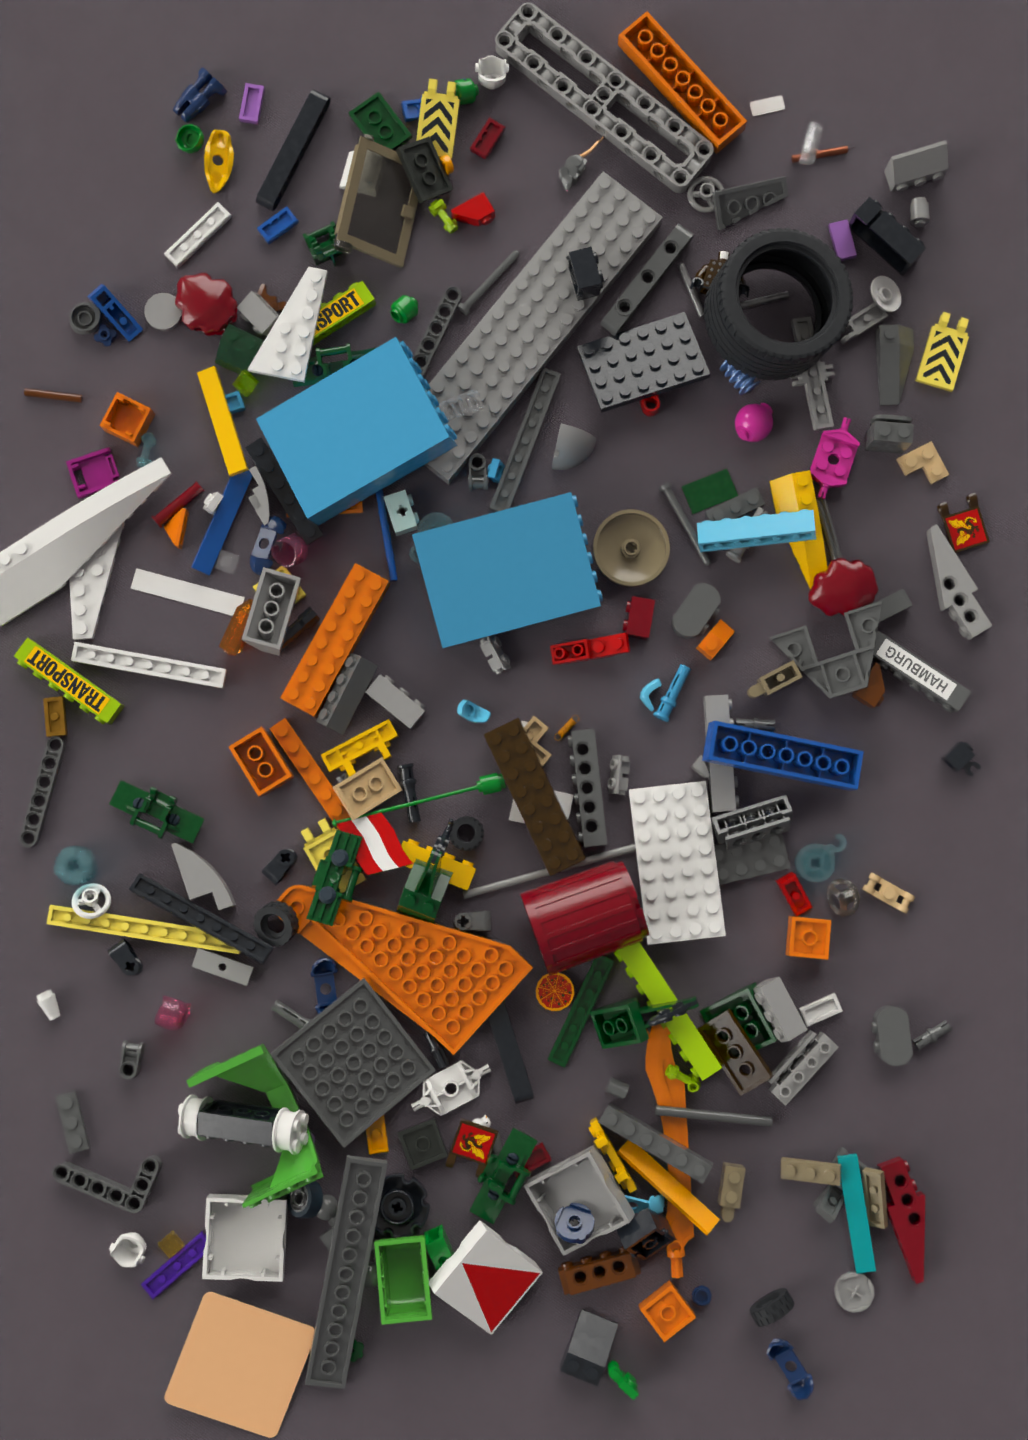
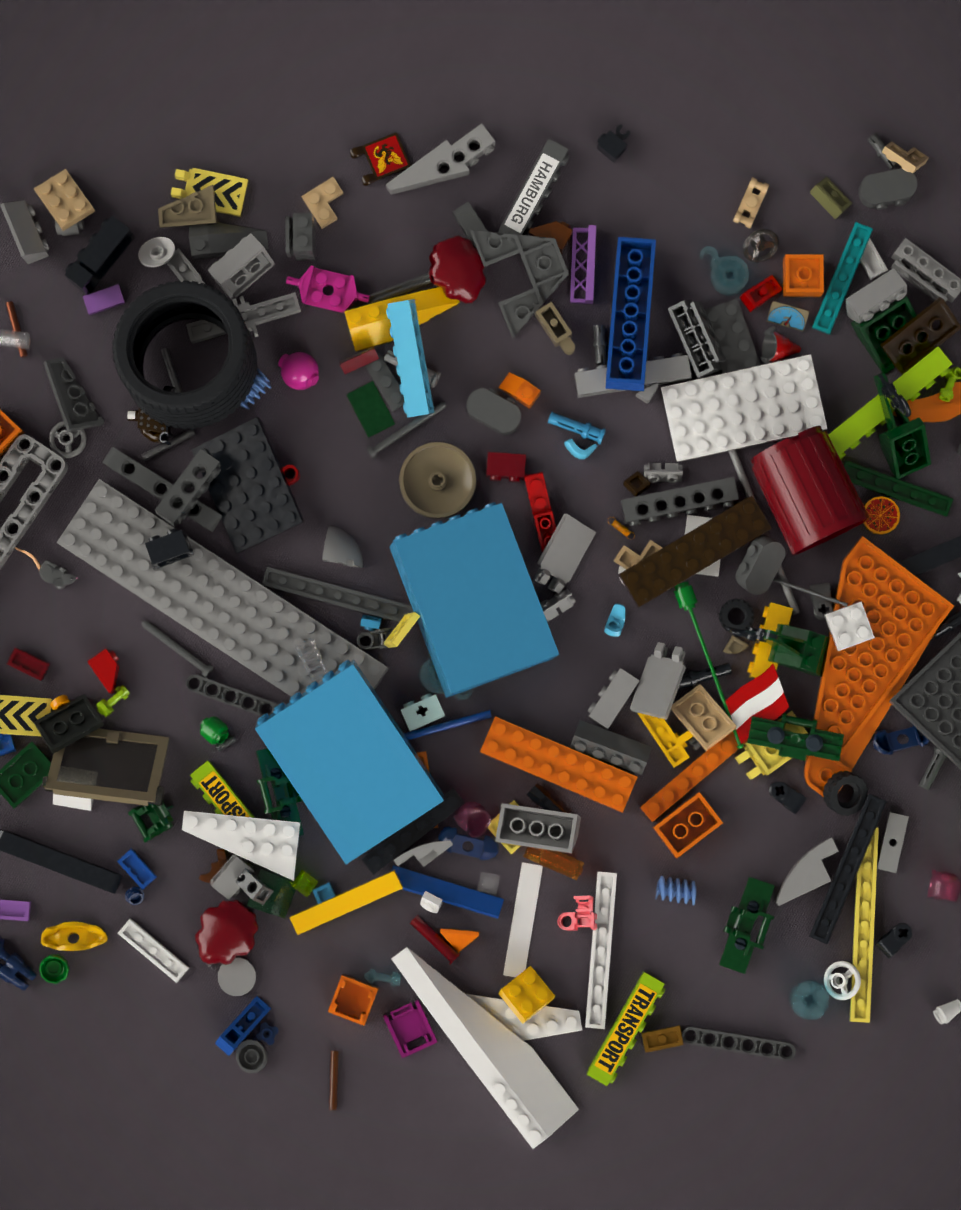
camera: 90 degrees left, 0 degrees up
(111, 586) = (526, 994): none -> yellow piece
(184, 651) = (584, 915): none -> coral piece
(199, 745) = (676, 890): none -> medium blue piece
(243, 329) = (254, 887): none -> dark grey leg
(251, 220) = (134, 895): none -> dark blue plate
(392, 323) = (226, 743): none -> flat silver piece
(406, 748) = (659, 682): none -> light grey tile
(436, 828) = (735, 646): none -> dark tan tile
(442, 944) = (849, 626): none -> white plate
(483, 495) = (401, 630): none -> light yellow tile
(484, 905) = (809, 592): none -> dark grey piece
(514, 861) = (760, 564): none -> dark grey brick
(546, 666) = (563, 553): none -> light grey tile
(609, 747) = (636, 483): none -> dark brown plate
(643, 290) = (201, 463): none -> dark grey brick
(737, 903) = (777, 346): none -> hat
(759, 482) = (359, 360): none -> dark red slope
(767, 918) = (787, 316): none -> slope
(802, 978) = (842, 278): none -> teal tile
(838, 722) = (589, 270): none -> medium lavender fence
(864, 374) = (241, 266): none -> light grey slope
(887, 976) = (830, 197): none -> olive slope
(919, 1059) = (909, 161): none -> tan plate
(925, 332) = (194, 209): none -> dark tan wing
(945, 208) = (64, 200): none -> tan plate

